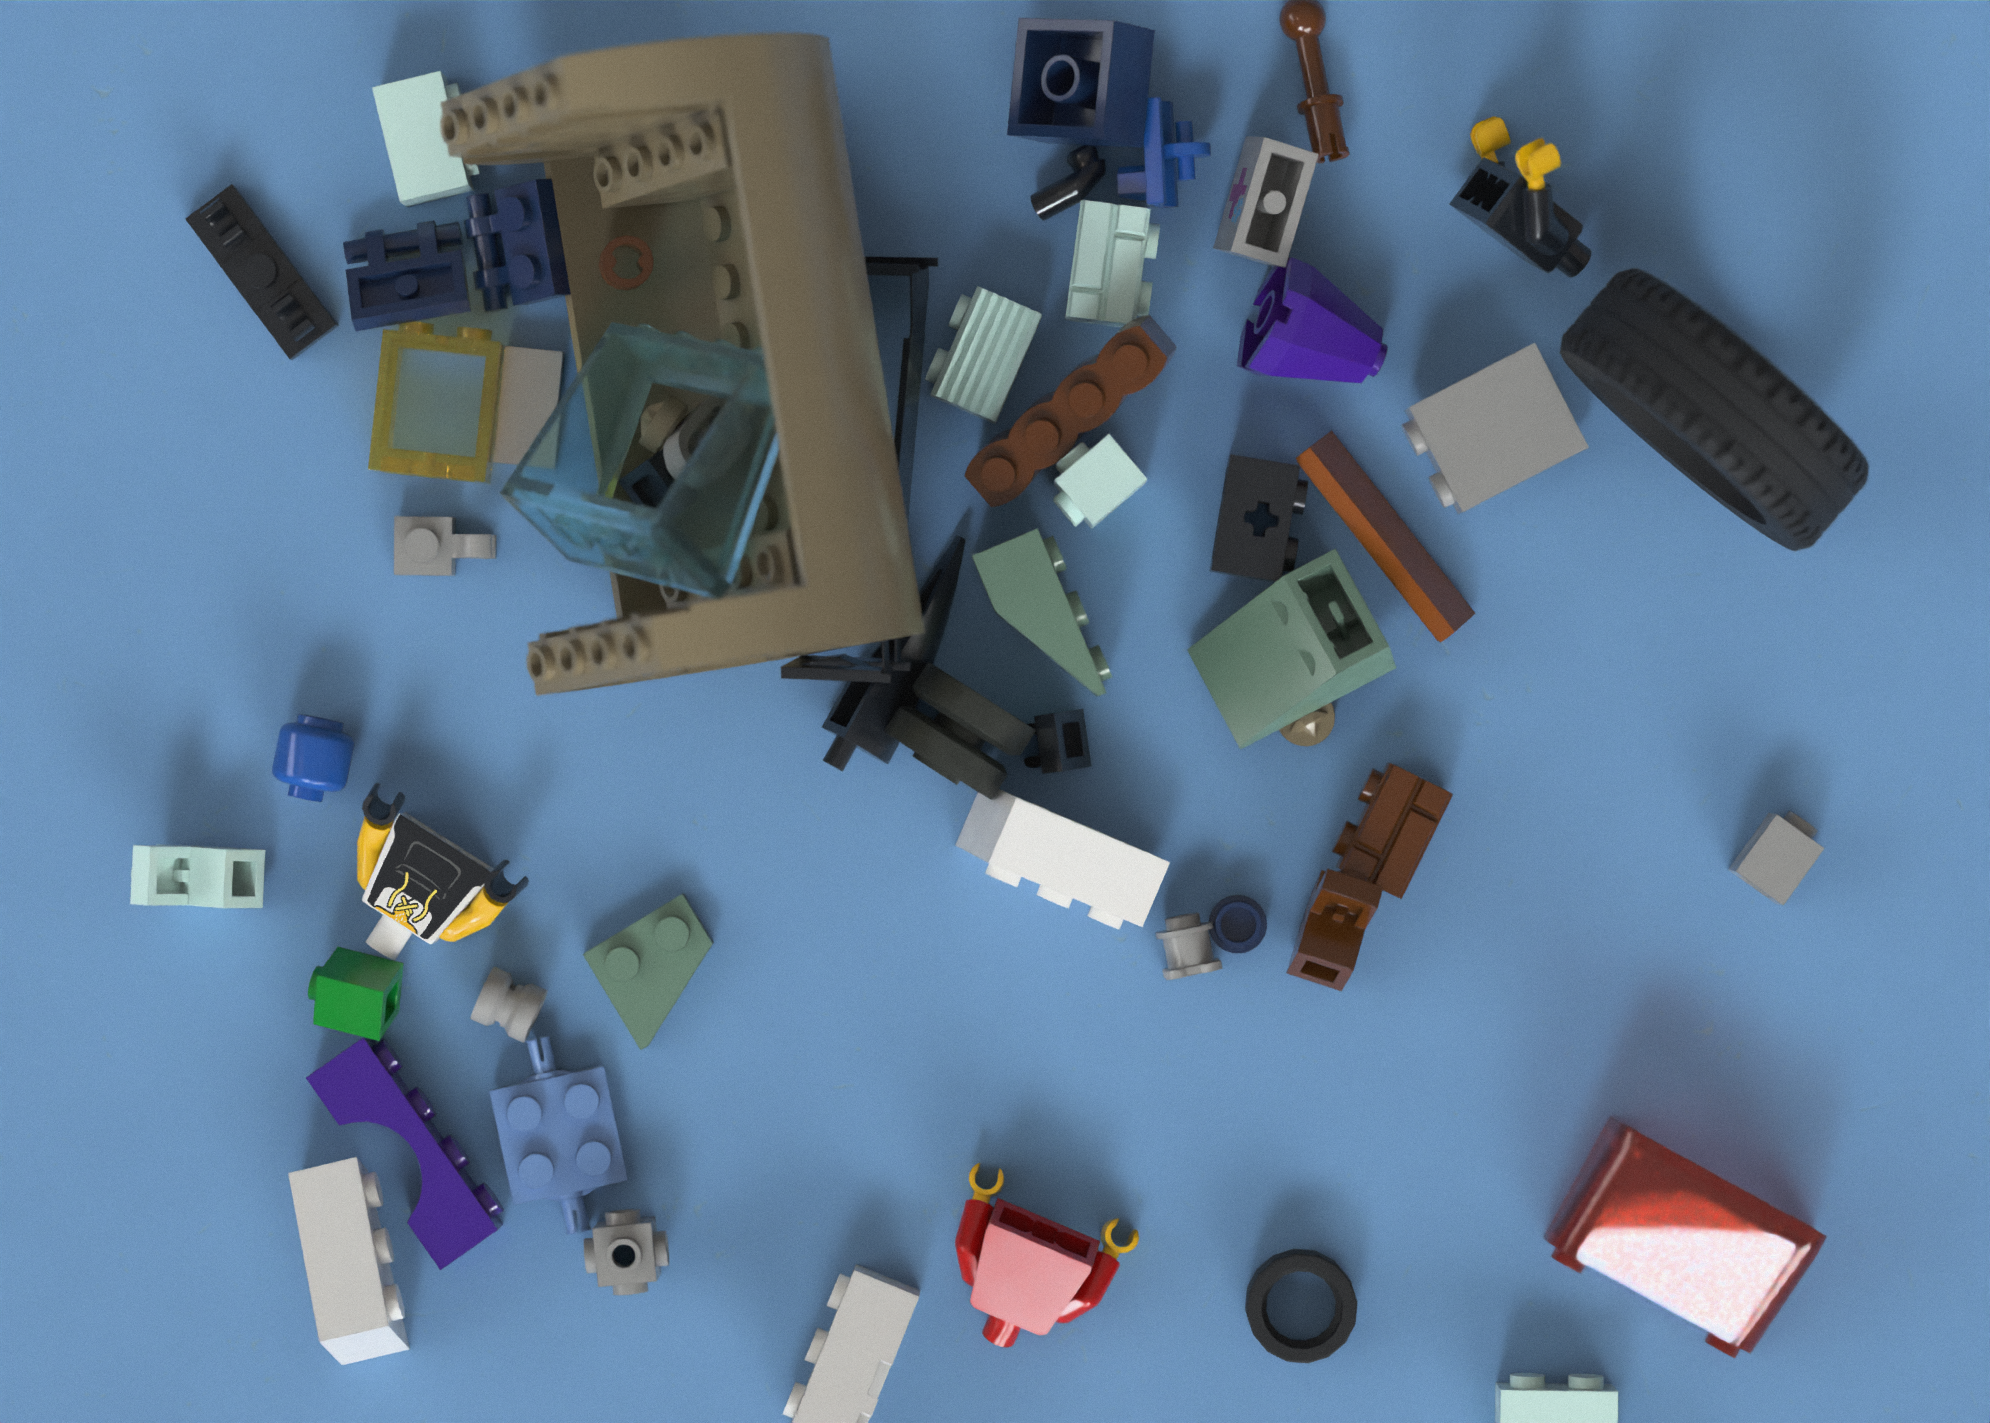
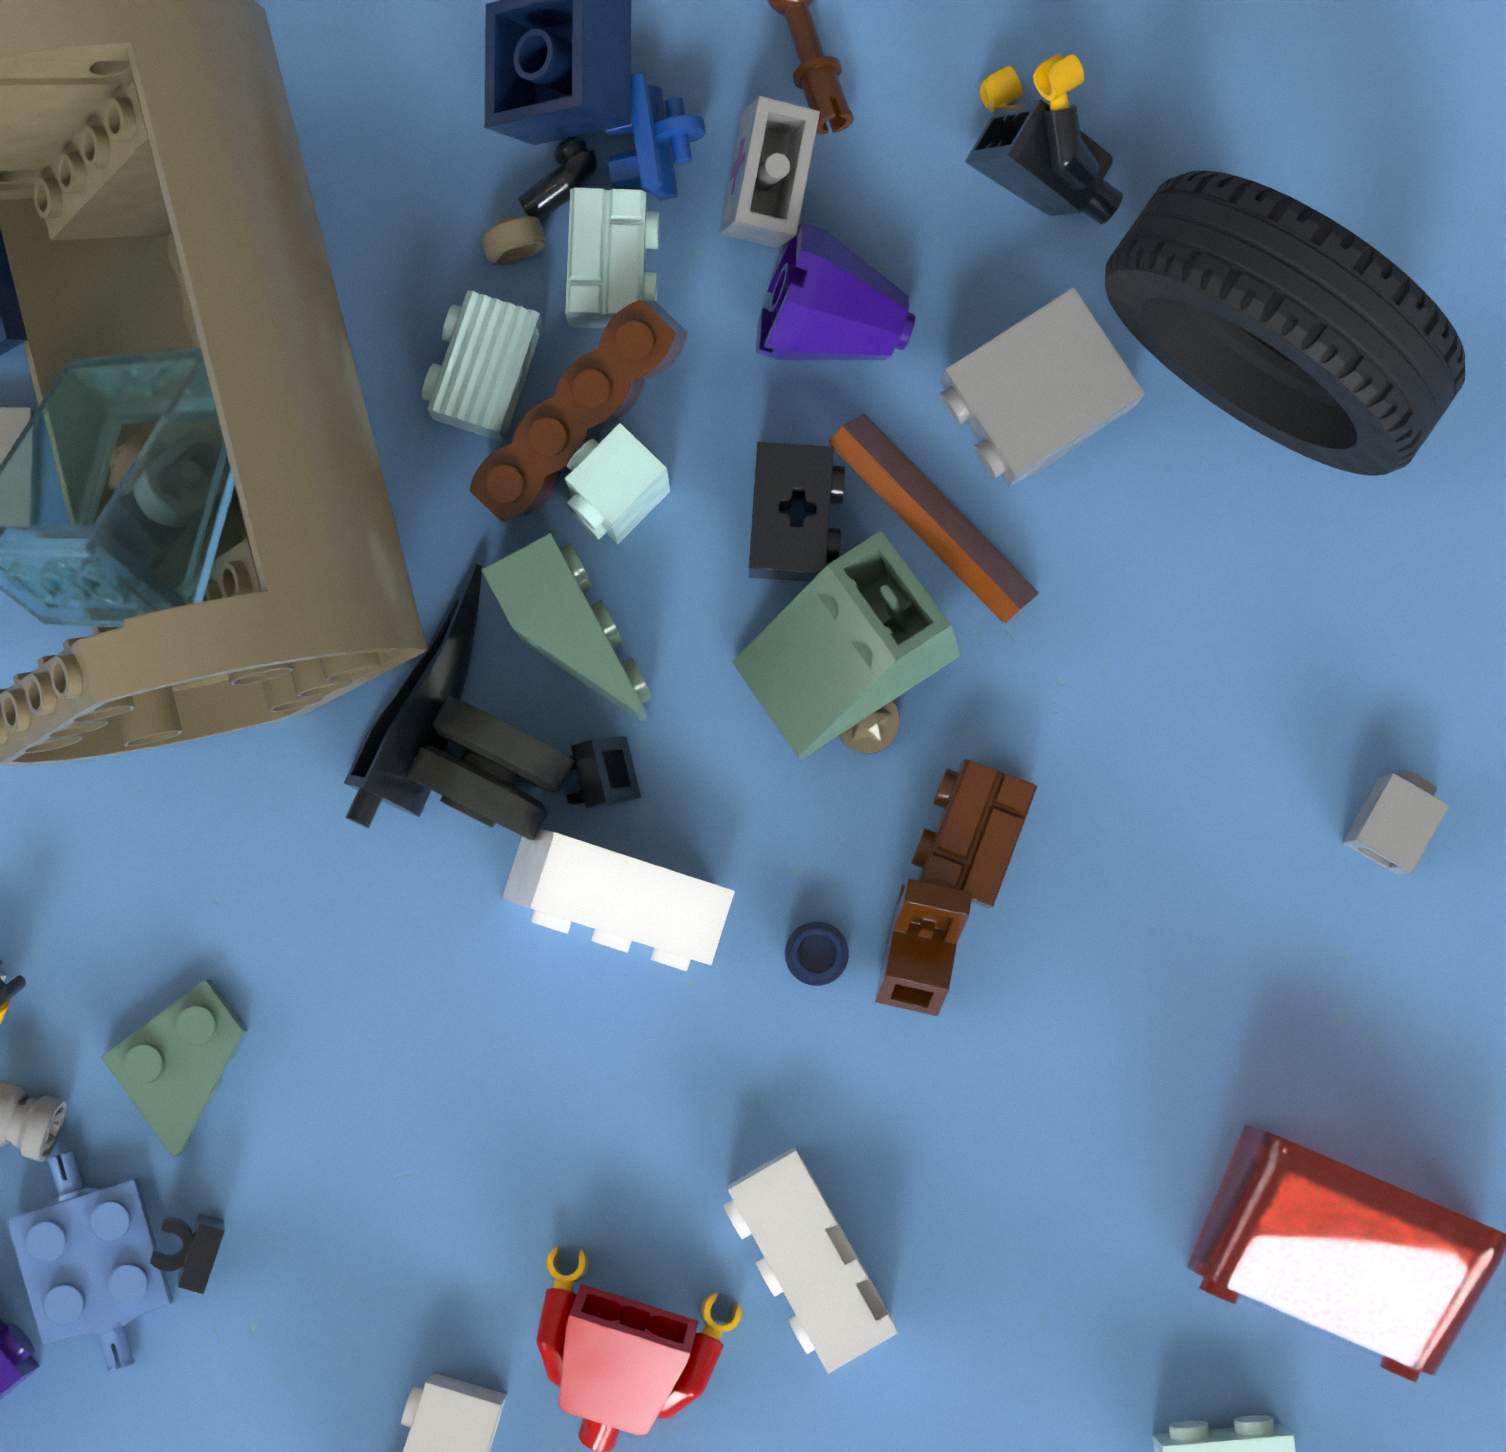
camera: 10 degrees left, 5 degrees down
(608, 262) = (103, 296): reddish brown bush -> none
(639, 1233) = (191, 1373): light grey brick -> none
(658, 1136) = (196, 1254): none -> black tile
(865, 669) = (399, 477): black piece -> none
(1022, 236) = (513, 239): none -> dark tan tile
(1187, 947) = (764, 983): light grey brick -> none
(1203, 1196) = (809, 1261): none -> white wedge
(1301, 1350) = (974, 1393): black tyre -> none

